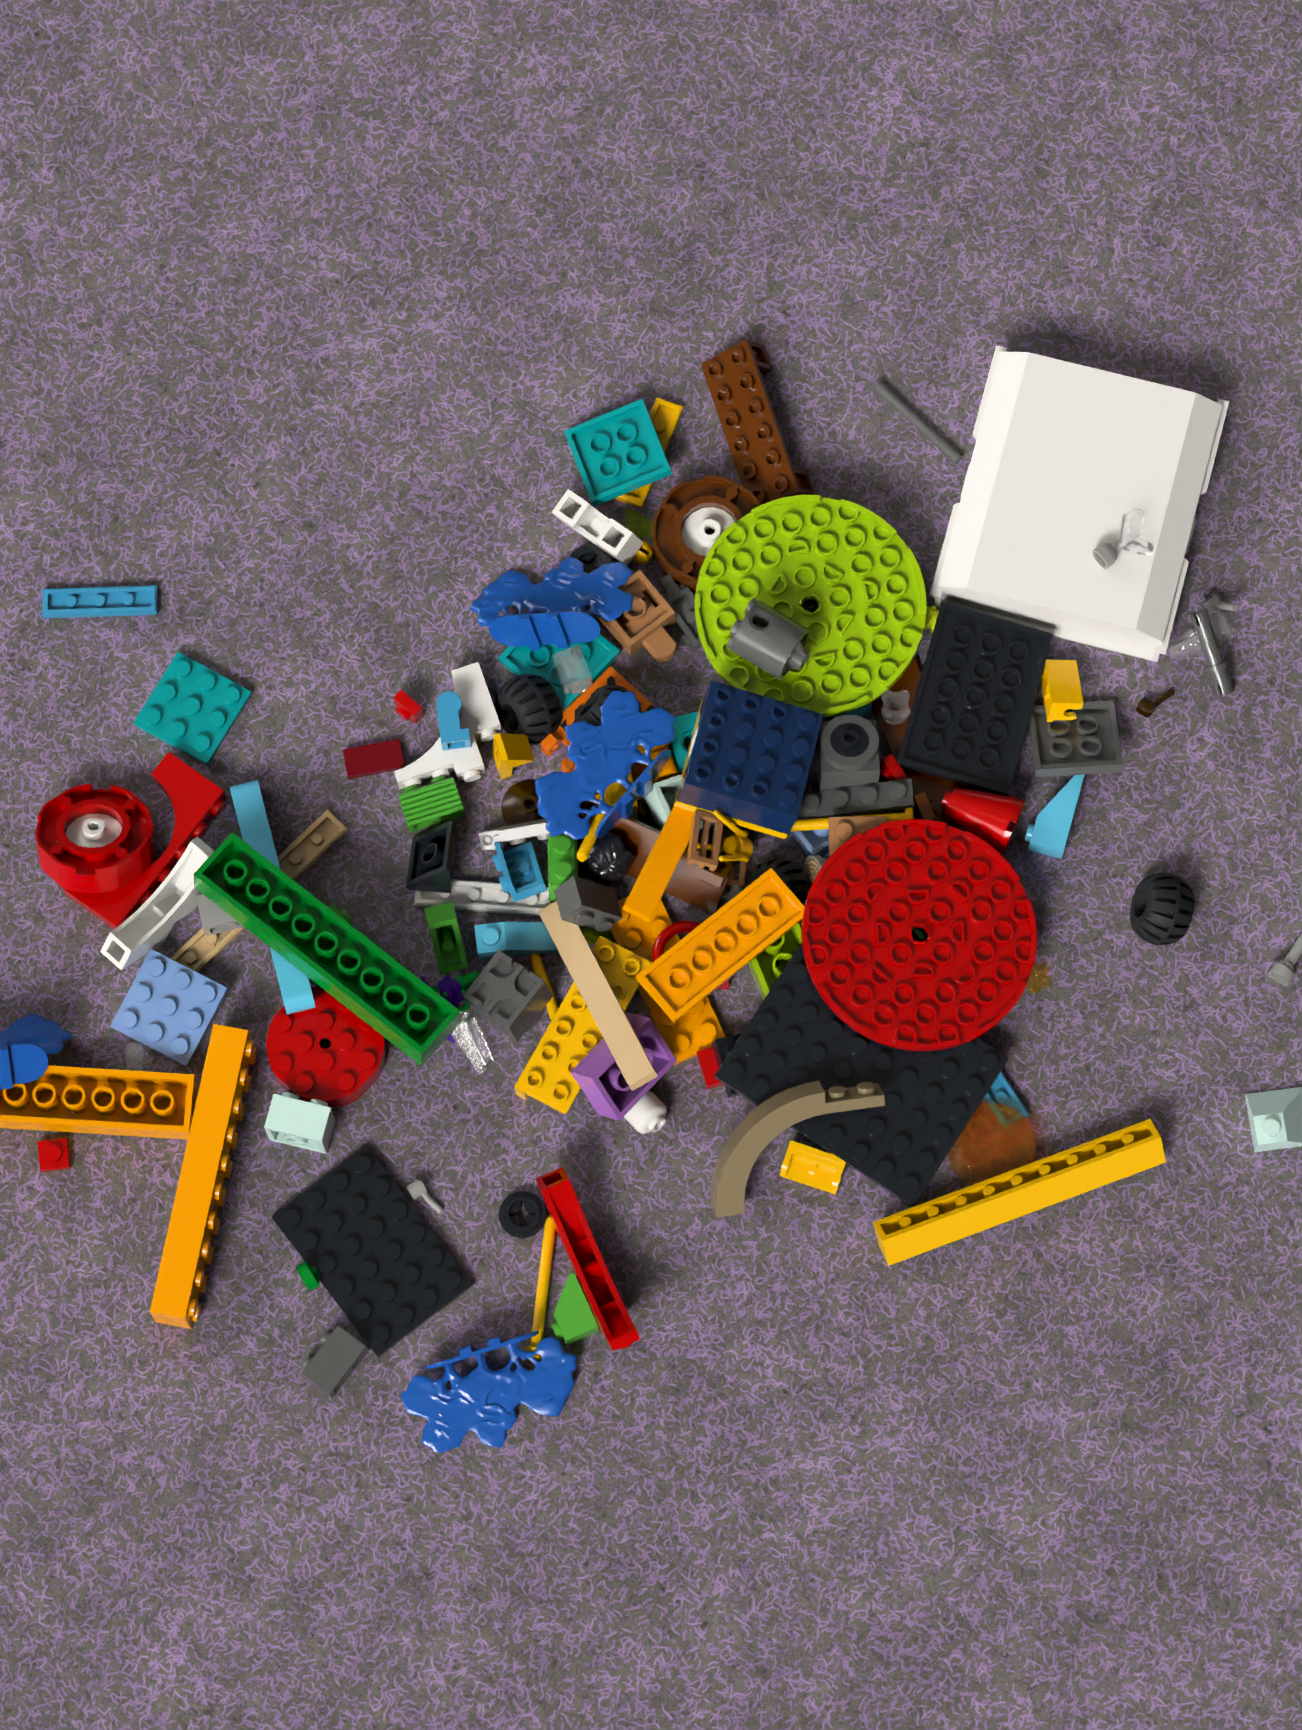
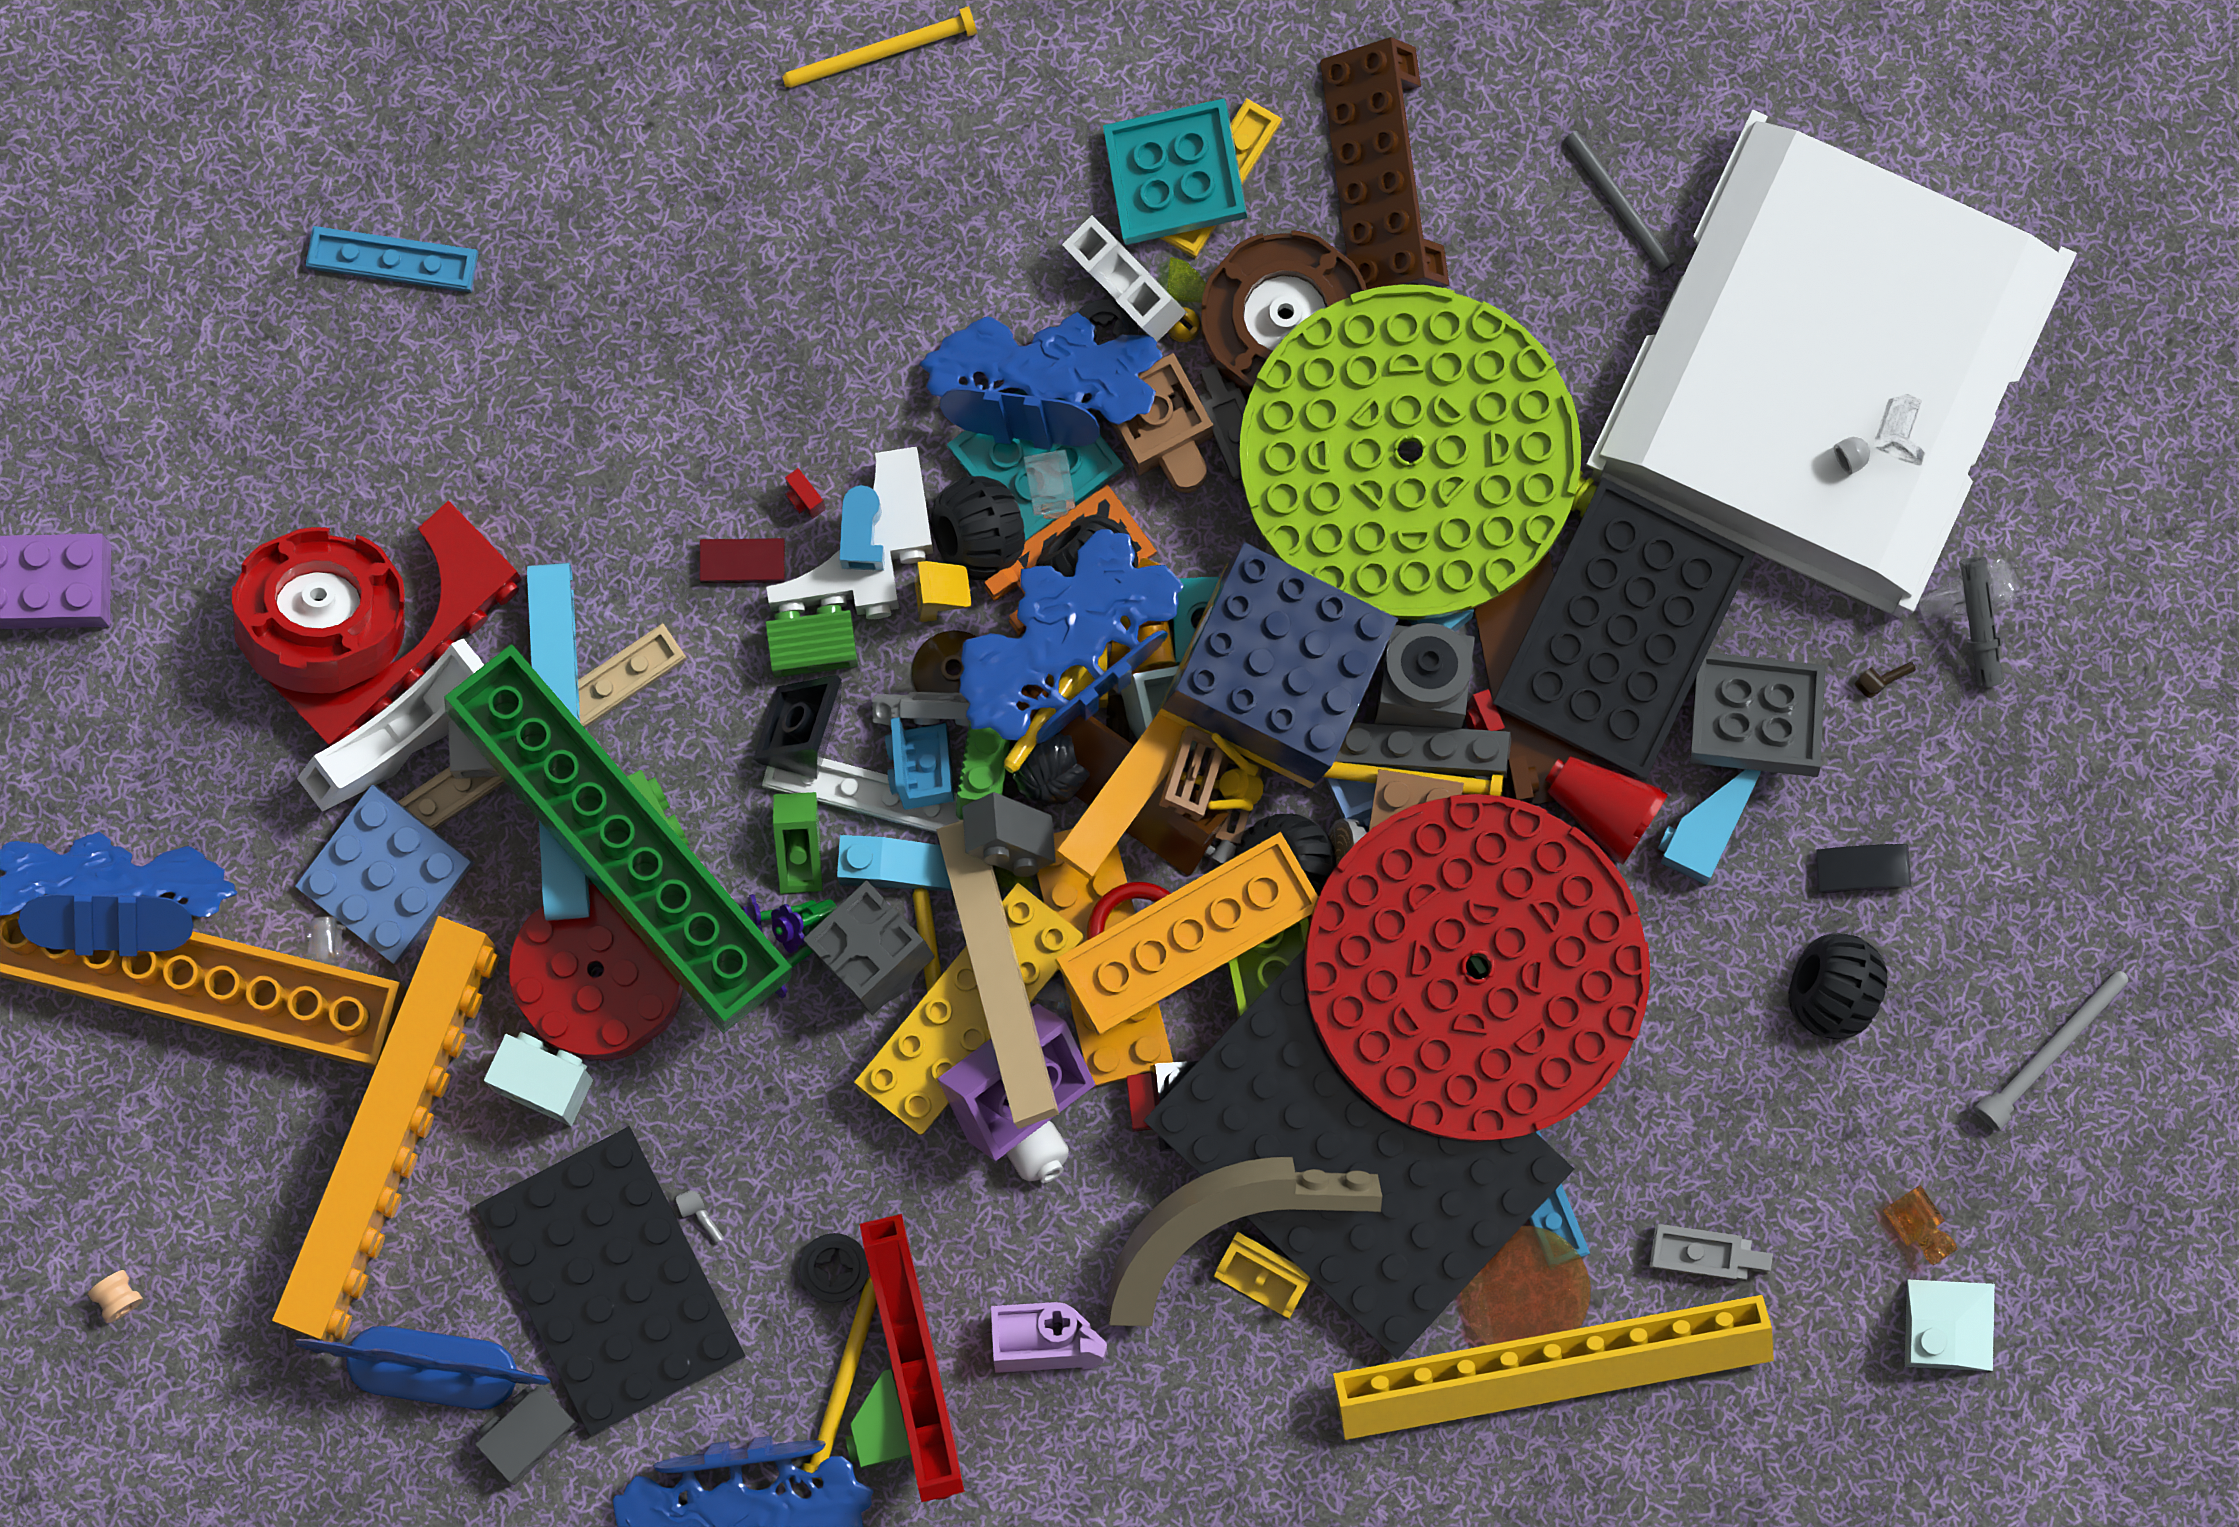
camera: 10 degrees right, 5 degrees up
(37, 1320) = (115, 1296): none -> light nougat wheel
(53, 1155) = (182, 1058): red plate -> none
(192, 708) = (496, 440): teal plate -> none
(257, 1329) = (428, 1366): none -> blue plant
(309, 1275) = (512, 1302): green tile -> none
(405, 407) = (882, 49): none -> yellow bar
(472, 1041) = (807, 1003): clear slope -> none
(662, 1239) = (1026, 1338): none -> lavender piece
(770, 640) = (1340, 496): dark grey cylinder -> none
(898, 700) = (1512, 610): clear brick -> none
(1038, 979) = (1639, 1056): clear yellow plant -> none
(1061, 689) = (1752, 637): yellow hinge -> none
(1107, 1100) = (1705, 1253): none -> light grey hinge
(1164, 828) = (1863, 868): none -> black slope
(1216, 603) = (2001, 548): light grey hand -> none
(1243, 1053) = (1917, 1220): none -> clear orange plate

